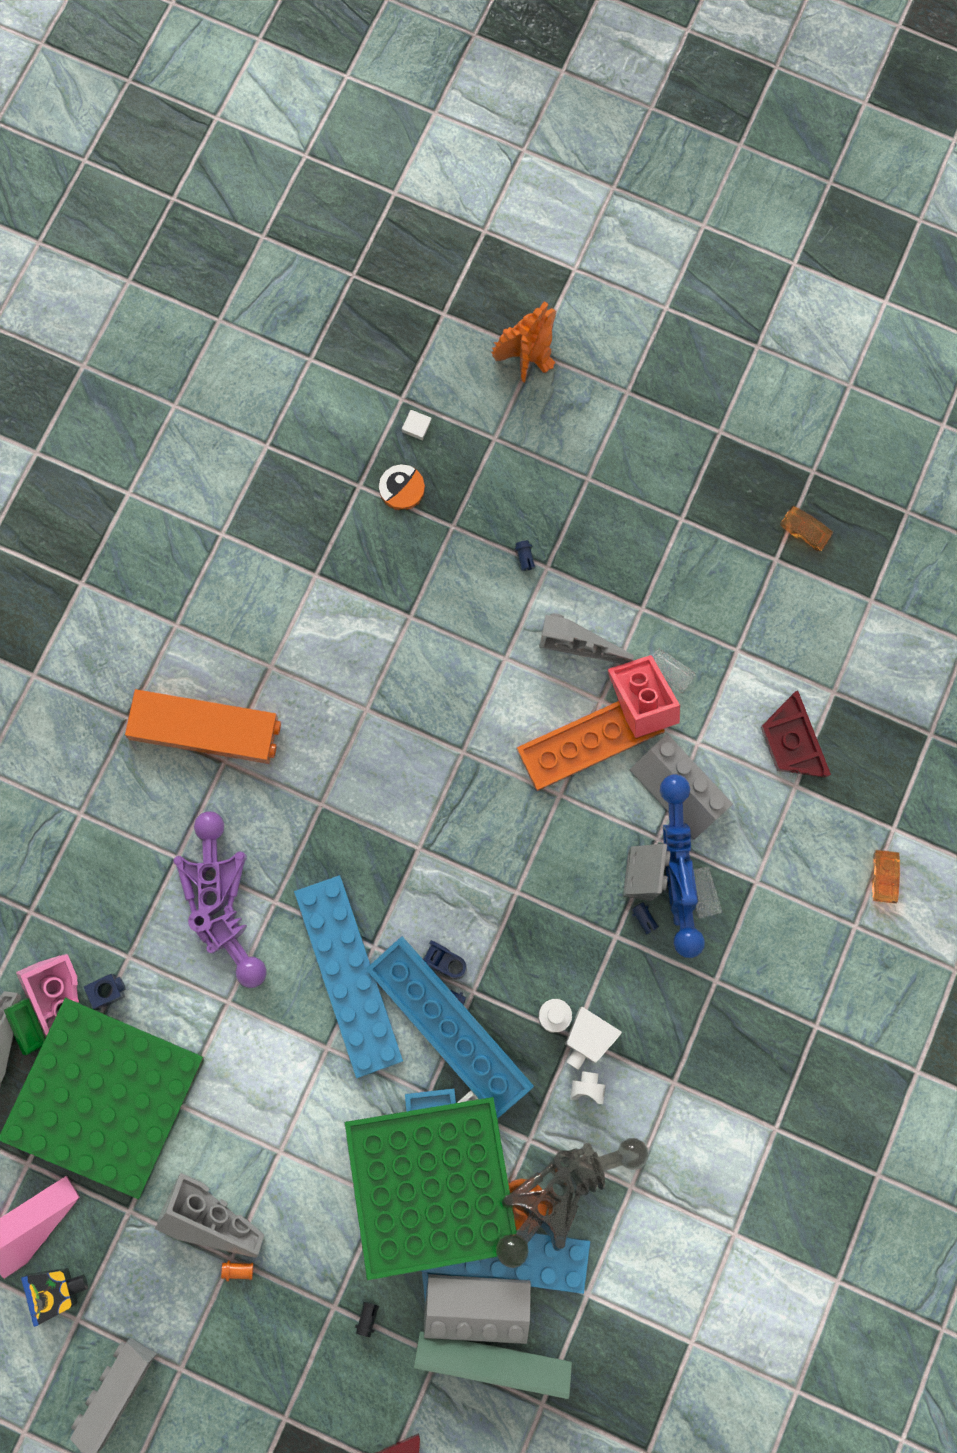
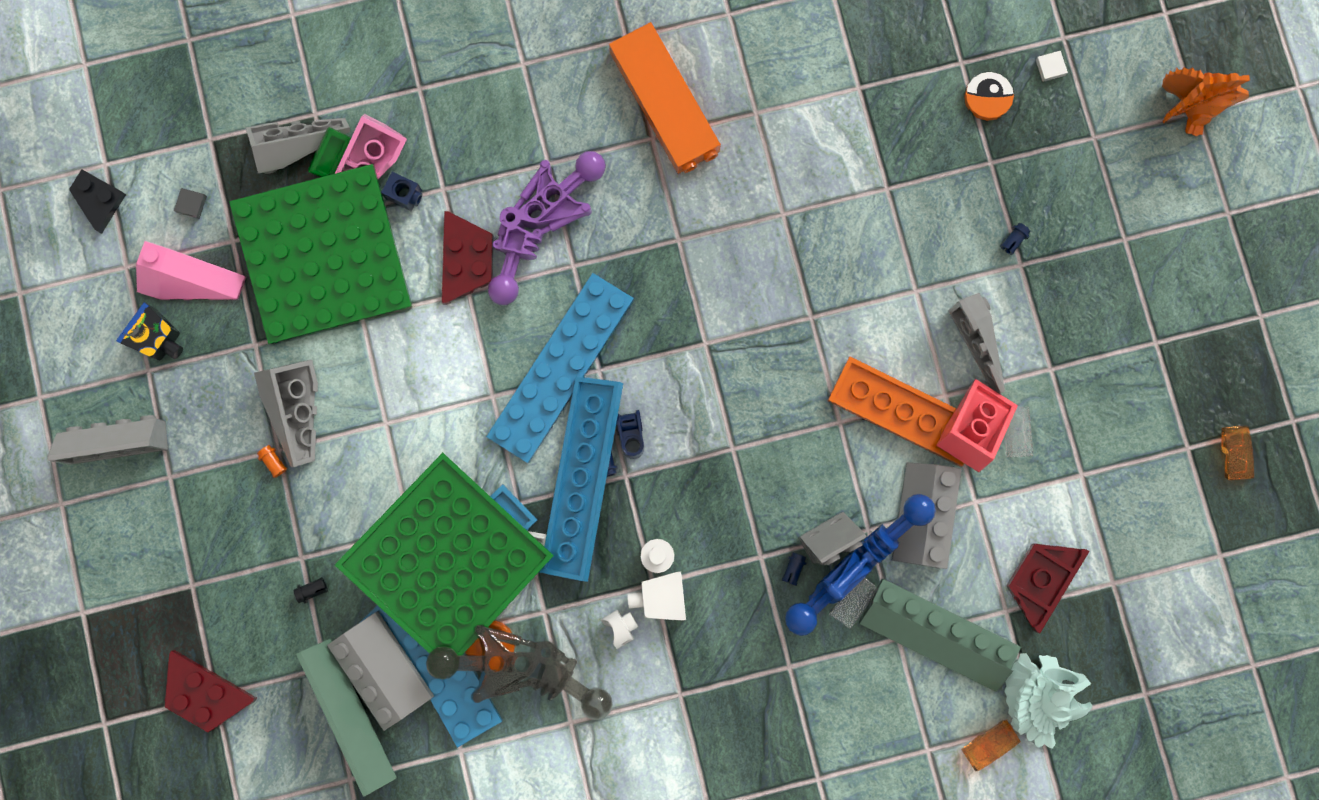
camera: 60 degrees right, 5 degrees up
(199, 982) = (465, 258): none -> dark red wing
(777, 849) = (940, 635): none -> sand green slope
(879, 813) = (1040, 699): none -> light aqua piece

